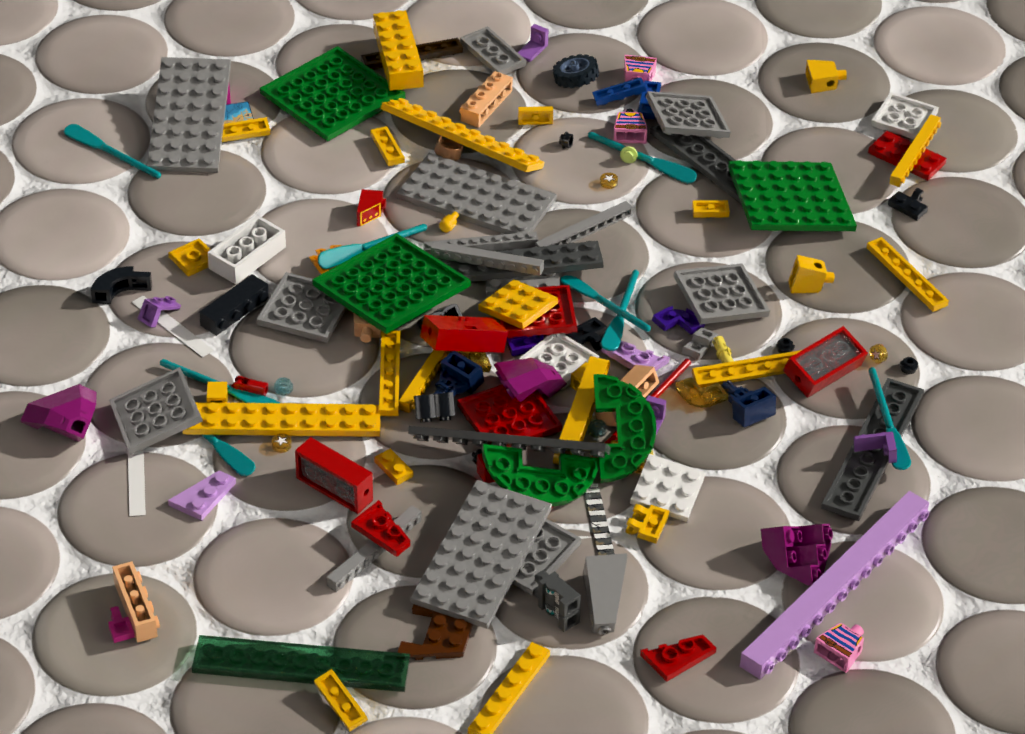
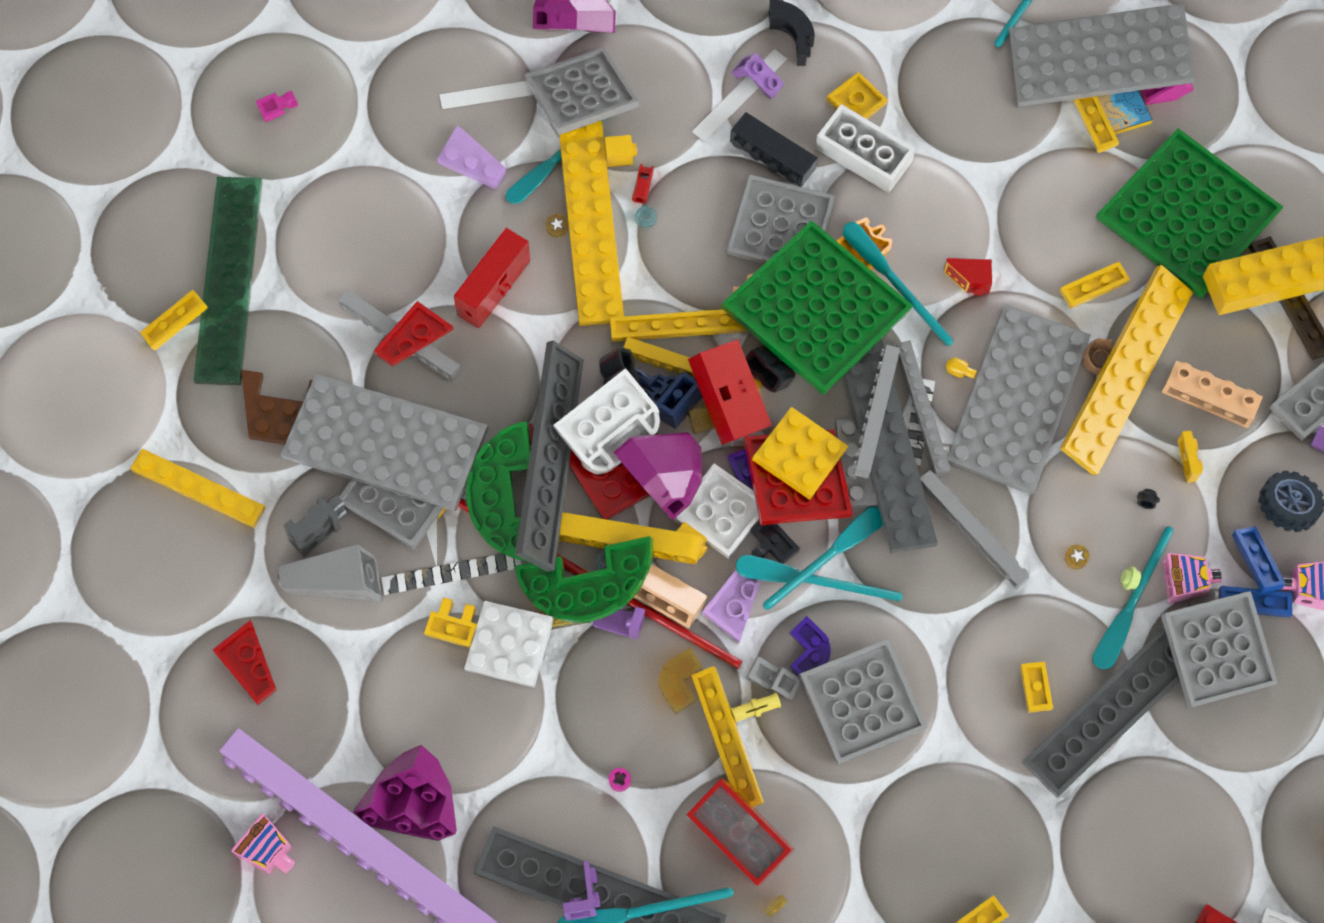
camera: 85 degrees right, 25 degrees up
(135, 601) = (301, 111): light nougat brick -> none
(244, 396) = (622, 196): teal piece -> none
(393, 466) = (529, 343): yellow plate -> none
(485, 402) = (607, 421): none -> white plate
(748, 405) = (659, 737): dark blue brick -> none
(782, 429) = (627, 779): none -> dark pink bush
(785, 345) = (780, 791): black plate -> none
(791, 196) = (1072, 792): green plate -> none
(808, 275) = (909, 804): yellow torso -> none

